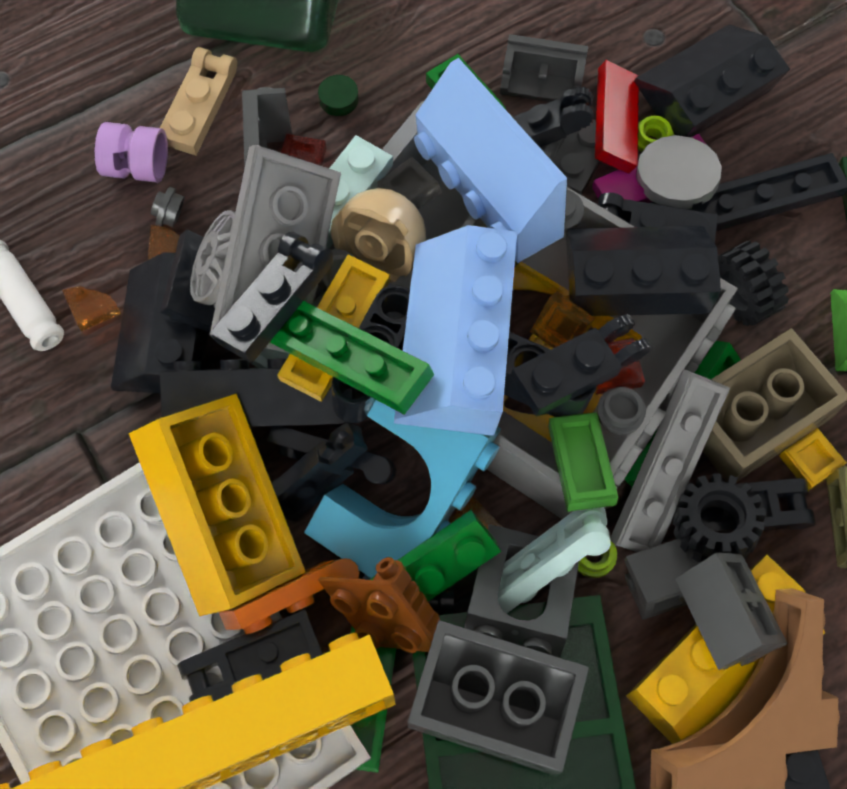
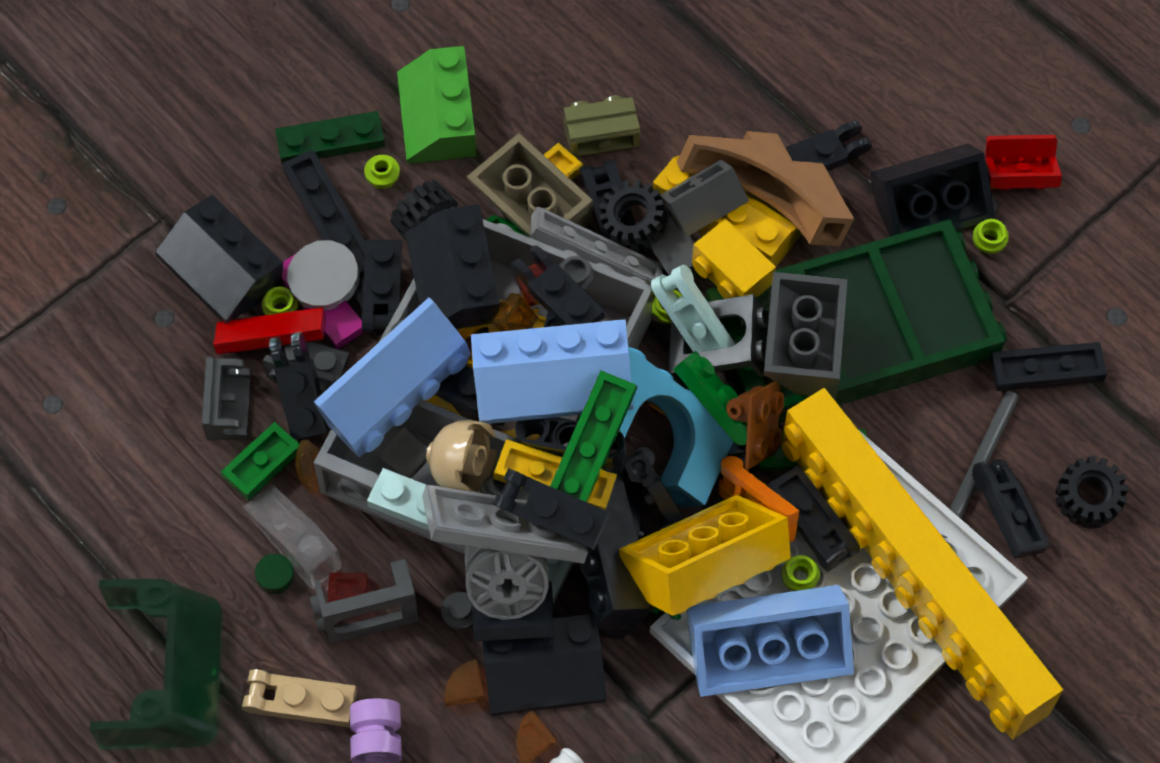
camera: 100 degrees left, 5 degrees down
(104, 572) = (770, 640): none -> light blue slope
(167, 207) = (425, 690): dark grey plate -> none
(170, 622) = (803, 564): none -> lime plate
(366, 111) = (294, 535): none -> clear slope
(582, 462) = (626, 292): bright green tile -> none
(624, 627) = (732, 262): none -> yellow brick
(814, 268) = (385, 179): none -> lime plate

